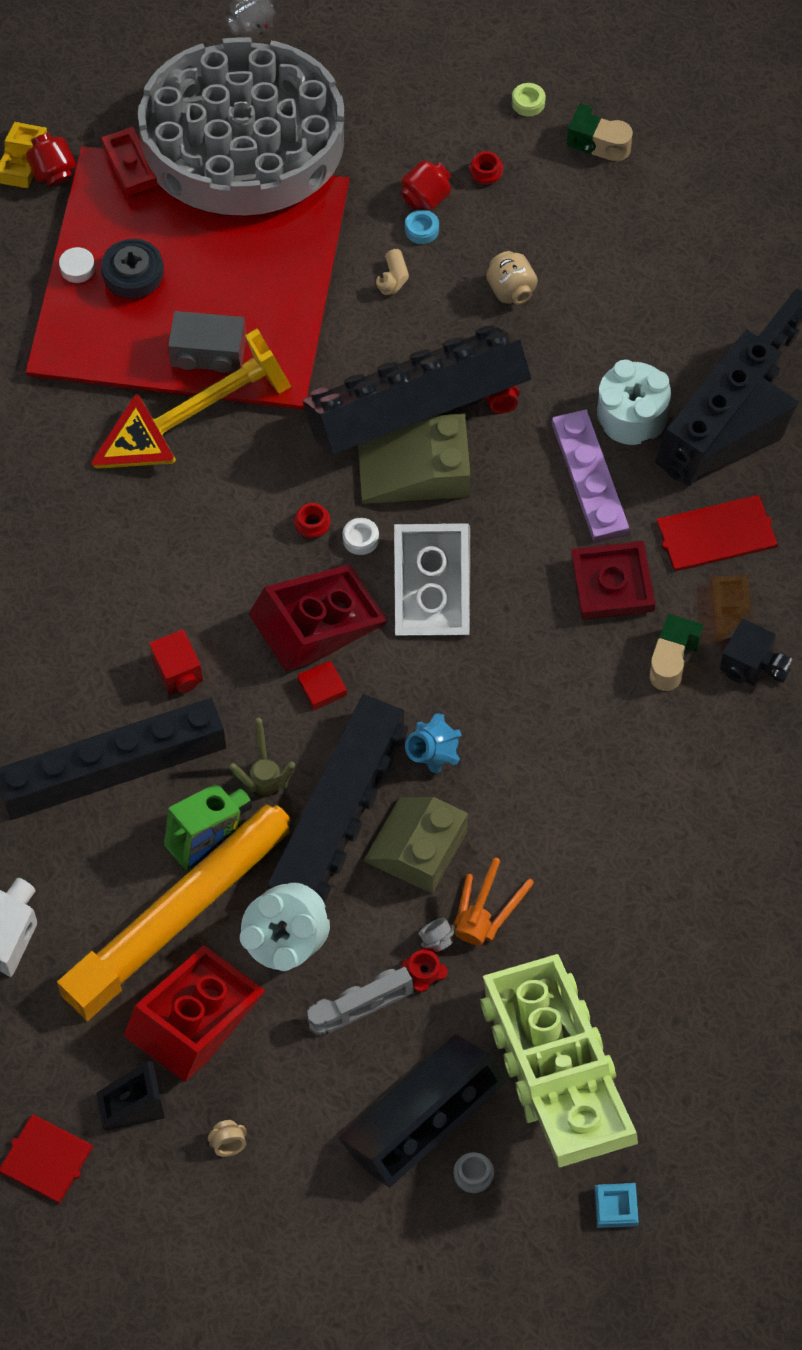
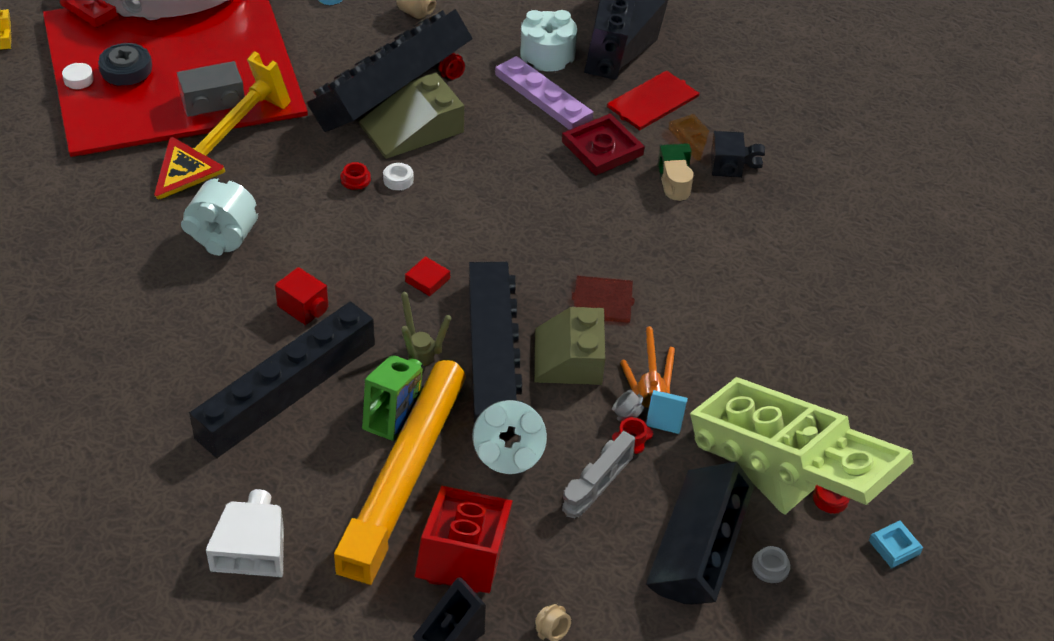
camera: 30 degrees left, 15 degrees down
(50, 159) = (22, 21): red head -> none
(135, 530) = (220, 216): none -> light aqua brick
(315, 615) = (394, 232): dark red slope -> none
(397, 273) = (328, 22): tan arm -> none
(432, 579) = (471, 178): white slope -> none
(433, 743) = (534, 281): dark azure rock -> none
(470, 958) = (666, 411): none -> medium azure tile
(494, 788) = (605, 293): none -> clear red piece

